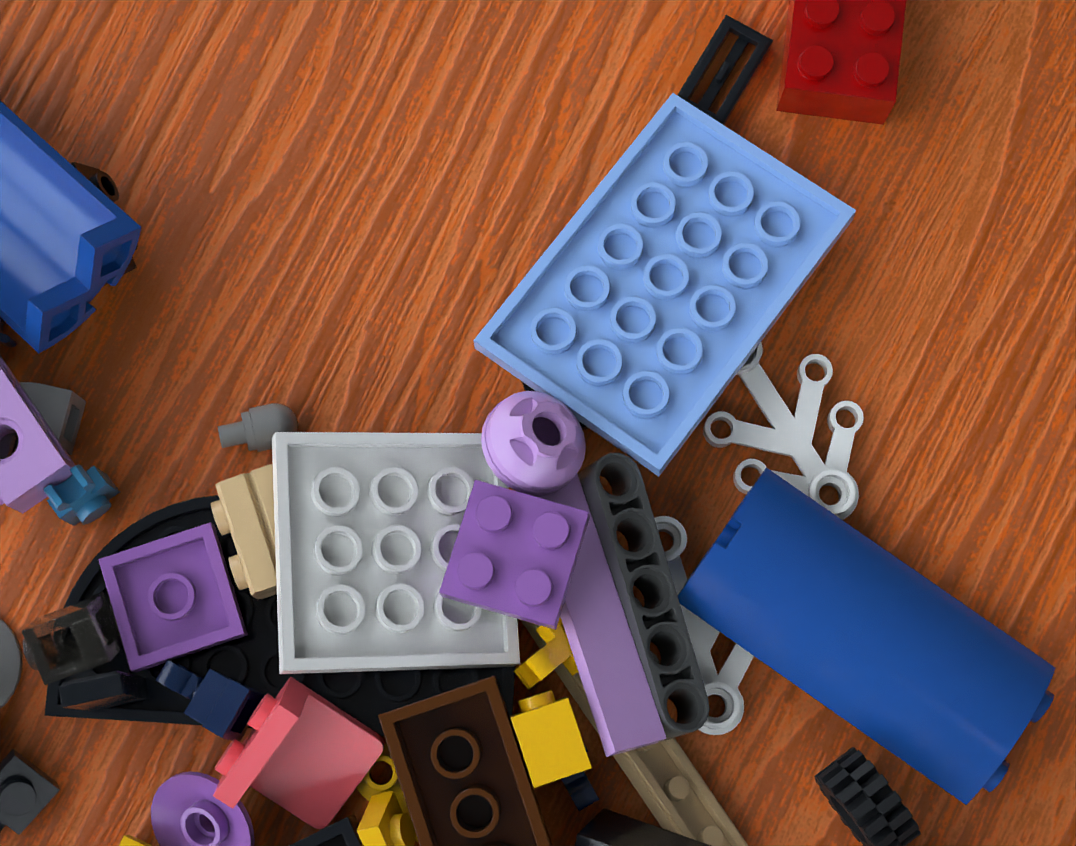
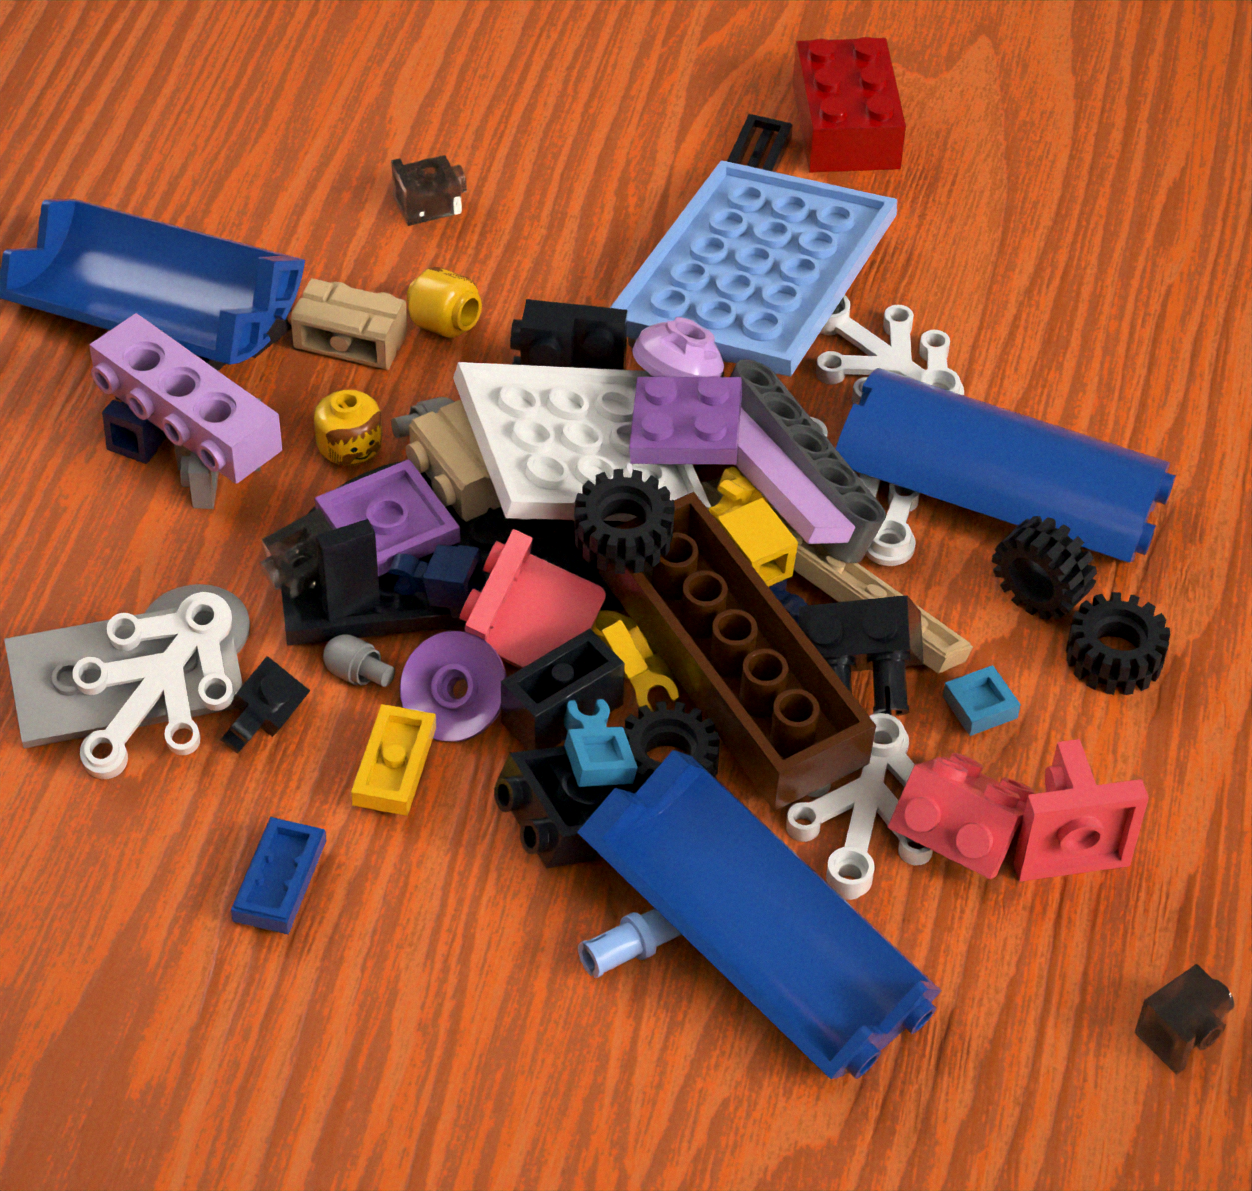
camera: 15 degrees left, 30 degrees down
(82, 495) = (286, 473): dark azure plate -> none
(115, 758) = (356, 661): none -> light grey cylinder
(180, 444) = (348, 427): none -> yellow head
(200, 272) = (349, 323): none -> tan brick
(307, 263) = (444, 302): none -> yellow head
(324, 90) = (428, 189): none -> clear smoke brick
(362, 732) = (618, 545): none -> black tyre
(406, 382) = (570, 336): none -> black plate

